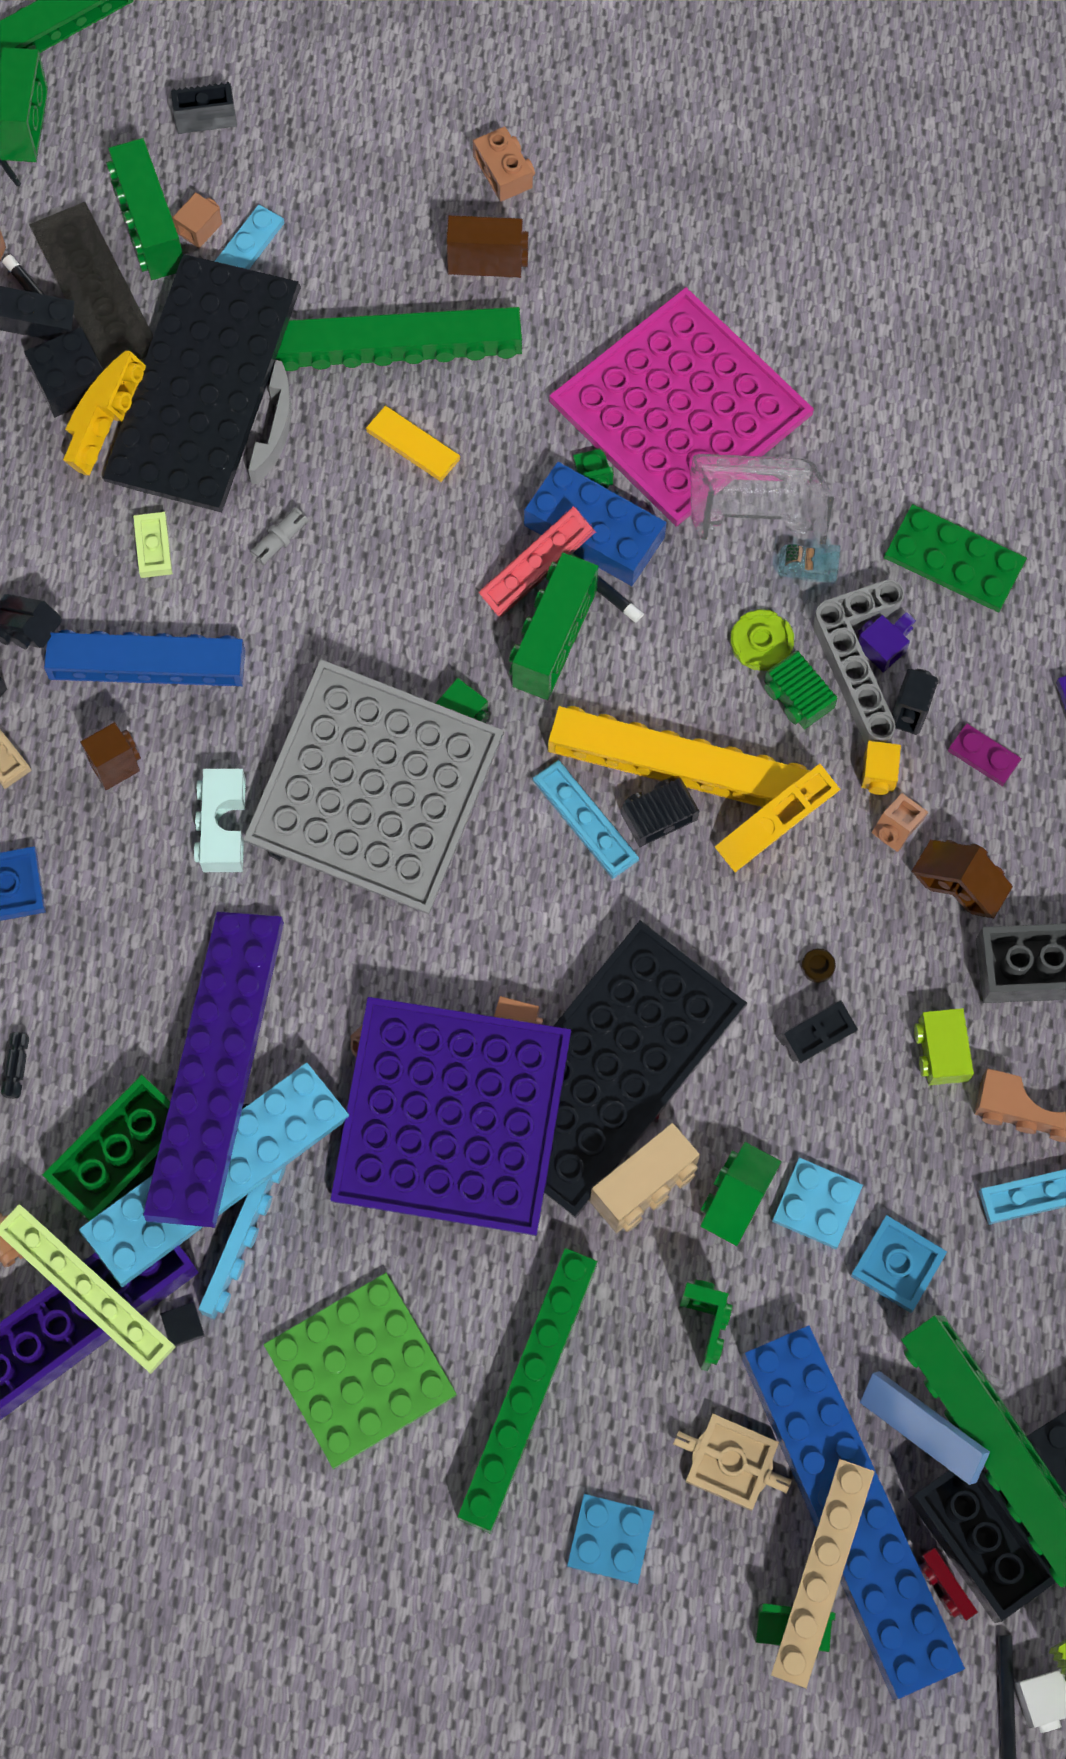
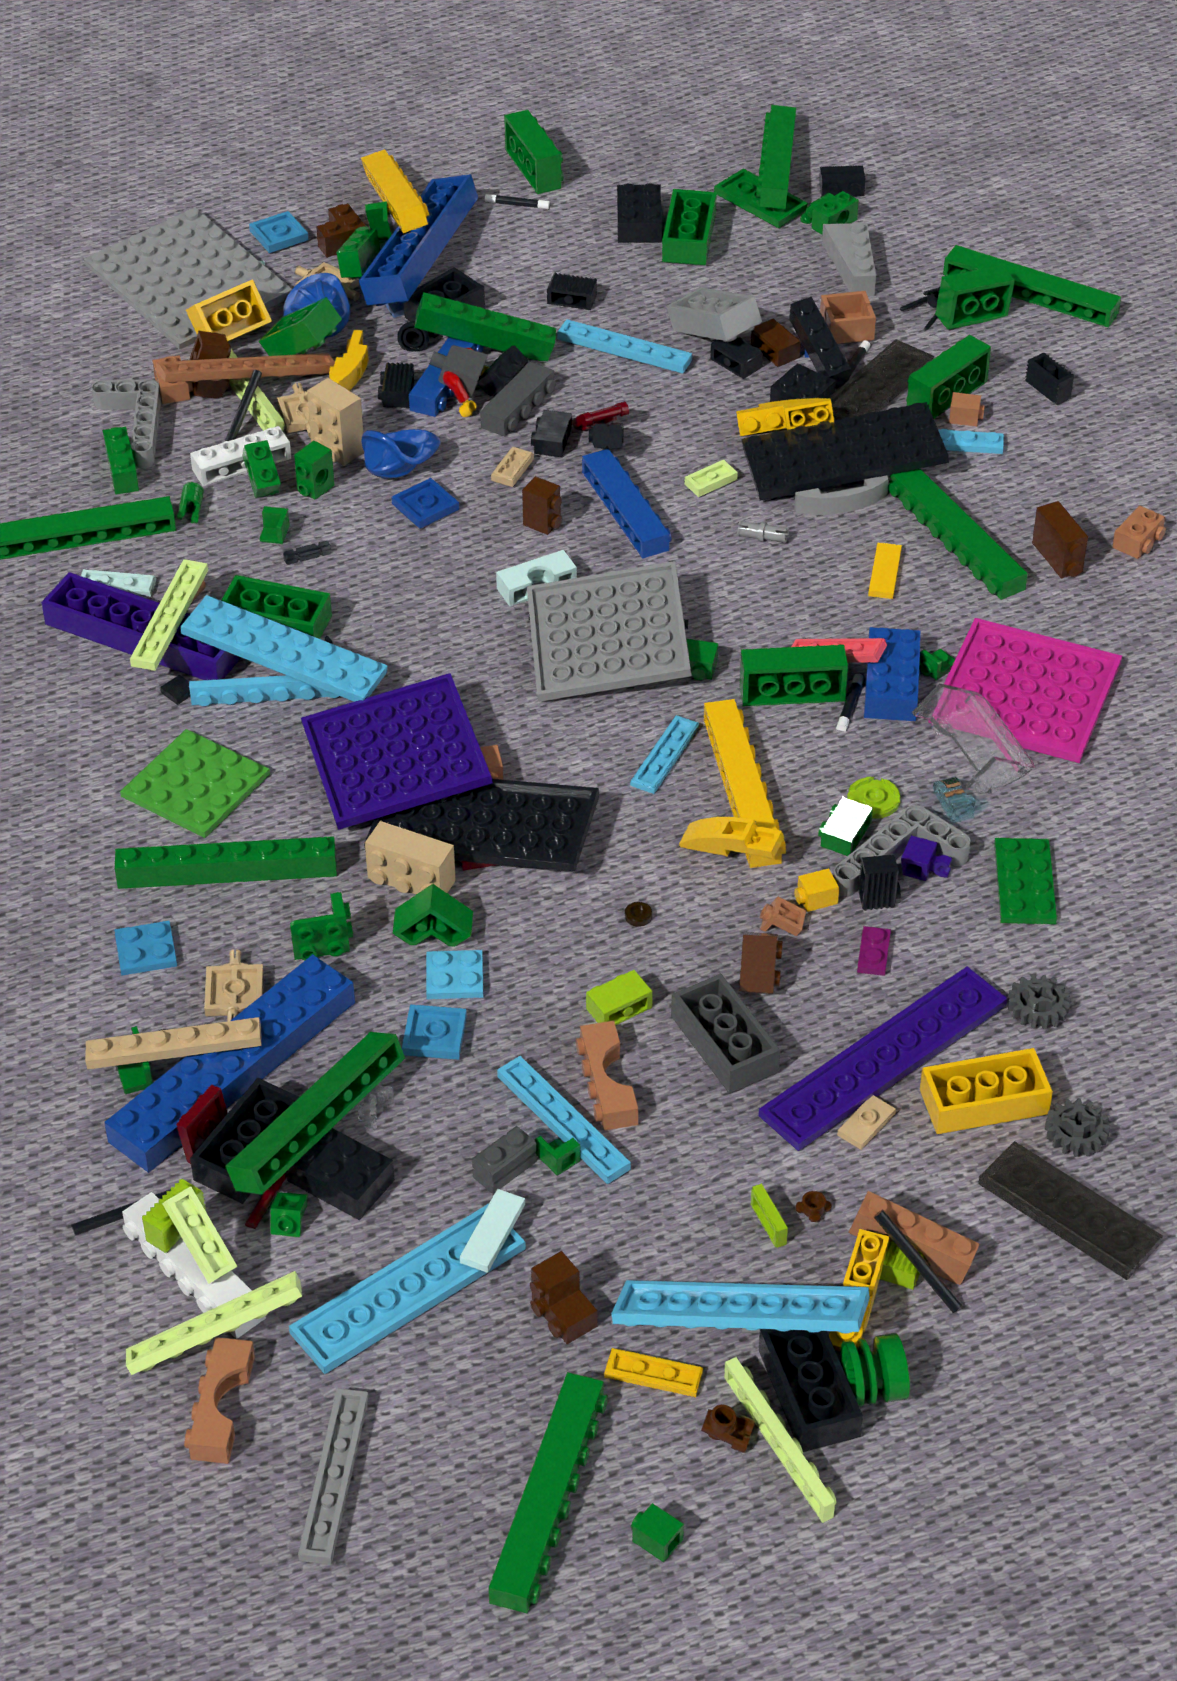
camera: 65 degrees right, 25 degrees down
(214, 1071) = (356, 622): dark purple plate -> none
(659, 811) = (695, 785): black brick -> none
(818, 1032) = (583, 921): black hinge -> none
(925, 1427) = (312, 1070): medium blue tile -> none

